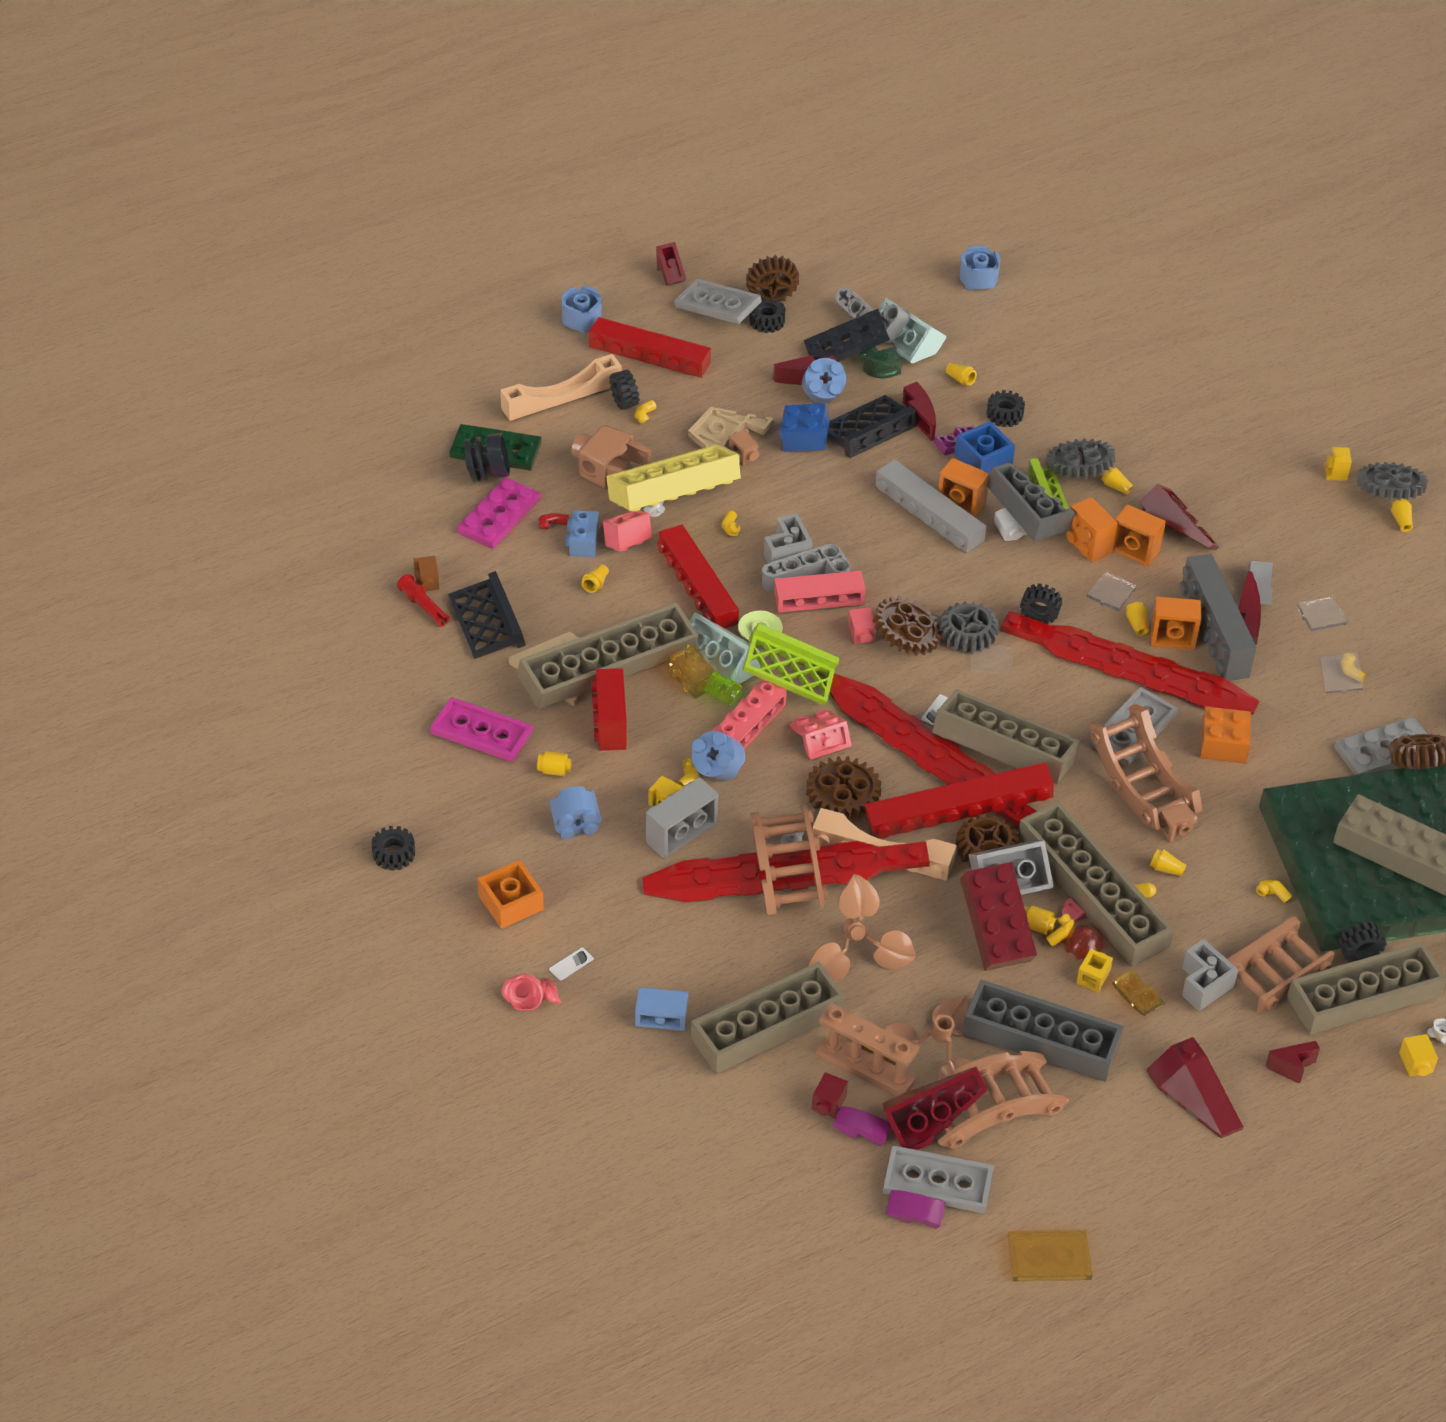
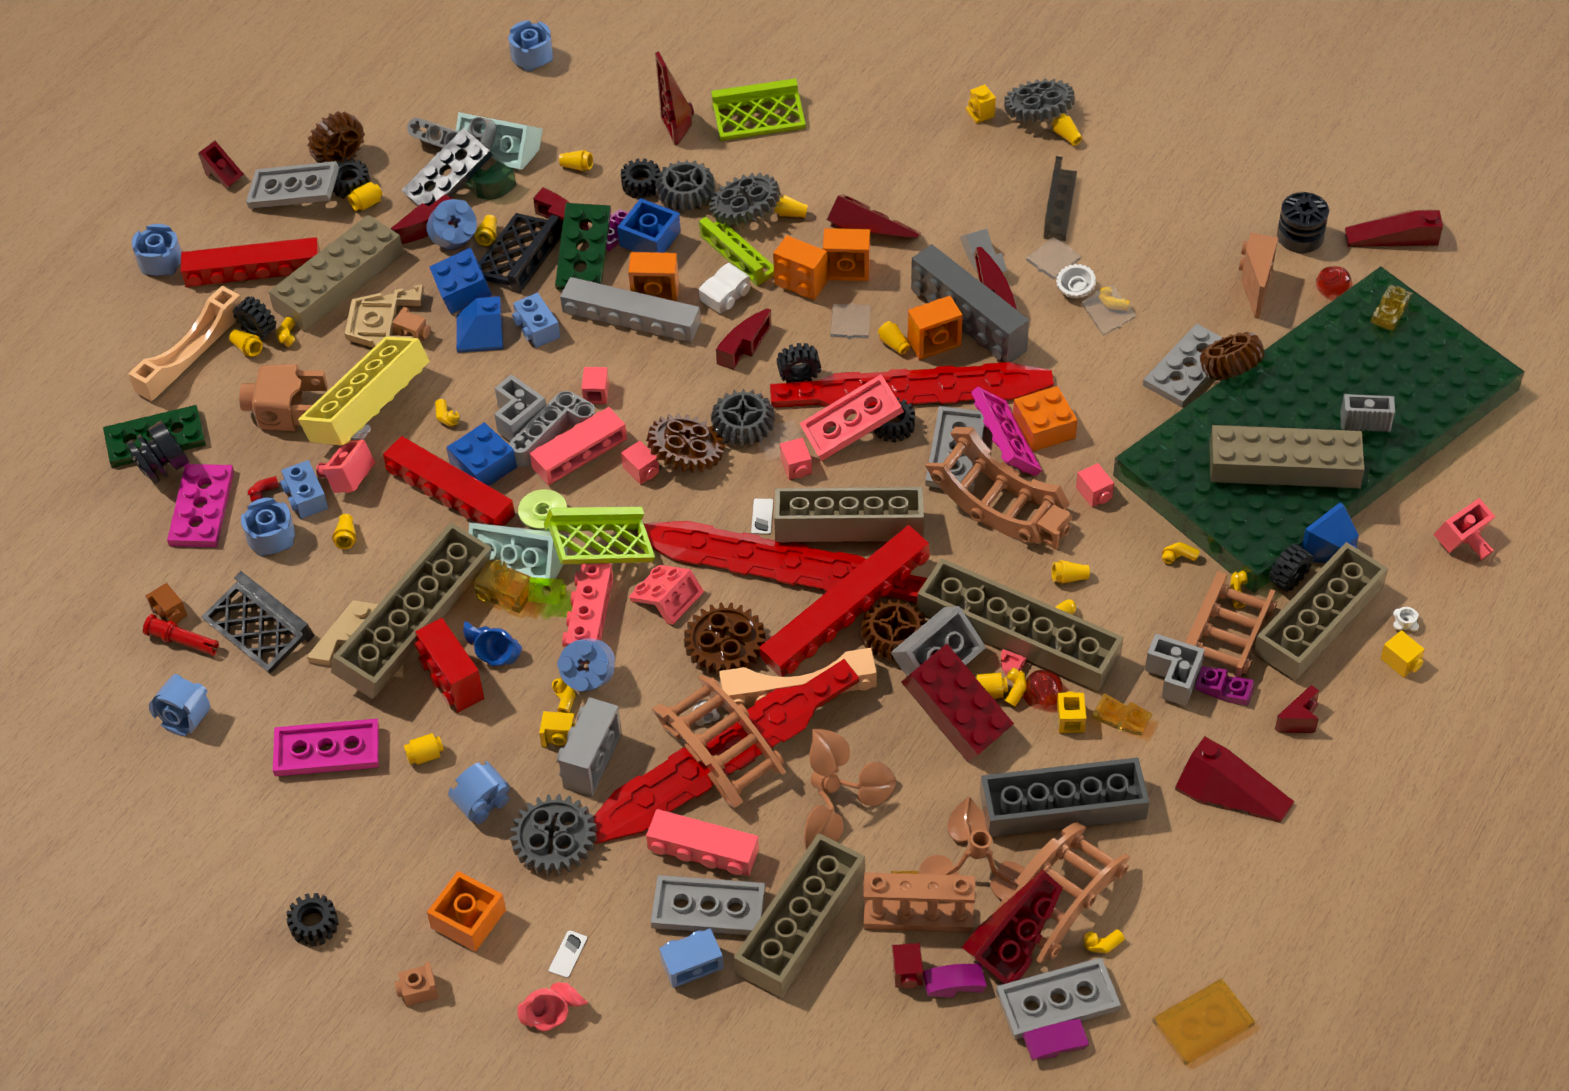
camera: 25 degrees left, 5 degrees up
(390, 648) = (180, 705): none -> medium blue brick
(441, 930) = (416, 985): none -> nougat brick
(537, 548) = (268, 526): none -> medium blue brick
(608, 407) = (247, 343): none -> yellow cone
(614, 871) = (577, 835): none -> dark grey gear
(655, 710) = (492, 644): none -> blue hair
(699, 965) = (699, 890): none -> light grey plate
(711, 381) = (336, 272): none -> dark tan brick
(725, 929) = (702, 843): none -> coral brick
(737, 566) = (482, 455): none -> blue brick
(770, 333) = (365, 196): none -> yellow brick
(801, 469) = (480, 326): none -> blue slope
(848, 483) = (535, 320): none -> medium blue brick
(850, 399) = (486, 231): none -> yellow cone
(863, 552) = (595, 385): none -> coral brick
(917, 429) = (573, 236): none -> dark green plate
(992, 676) = (795, 458): none -> coral brick
(1002, 1158) = (1102, 945): none -> yellow arm
(1009, 567) = (743, 339): none -> dark red slope
(1028, 503) = (729, 267): dark grey wedge -> none
(1038, 428) = (685, 189): none -> dark grey gear
(1050, 673) = (850, 431): none -> coral plate
(1069, 357) = (674, 107): none -> dark red wedge
(1099, 673) = (901, 428): none -> black tyre
(1143, 381) = (755, 96): none -> lime fence
(1183, 730) = (1006, 432): none -> dark pink plate
(1234, 805) = (1095, 485): none -> coral brick
(1240, 1009) = (1224, 687): none -> magenta slope
(1310, 932) = (1236, 581): none -> yellow arm
(1327, 638) = (1076, 281): none -> white hat
(1356, 569) = (1059, 202): none -> clear smoke fence
(1413, 927) = (1329, 534): none -> blue slope

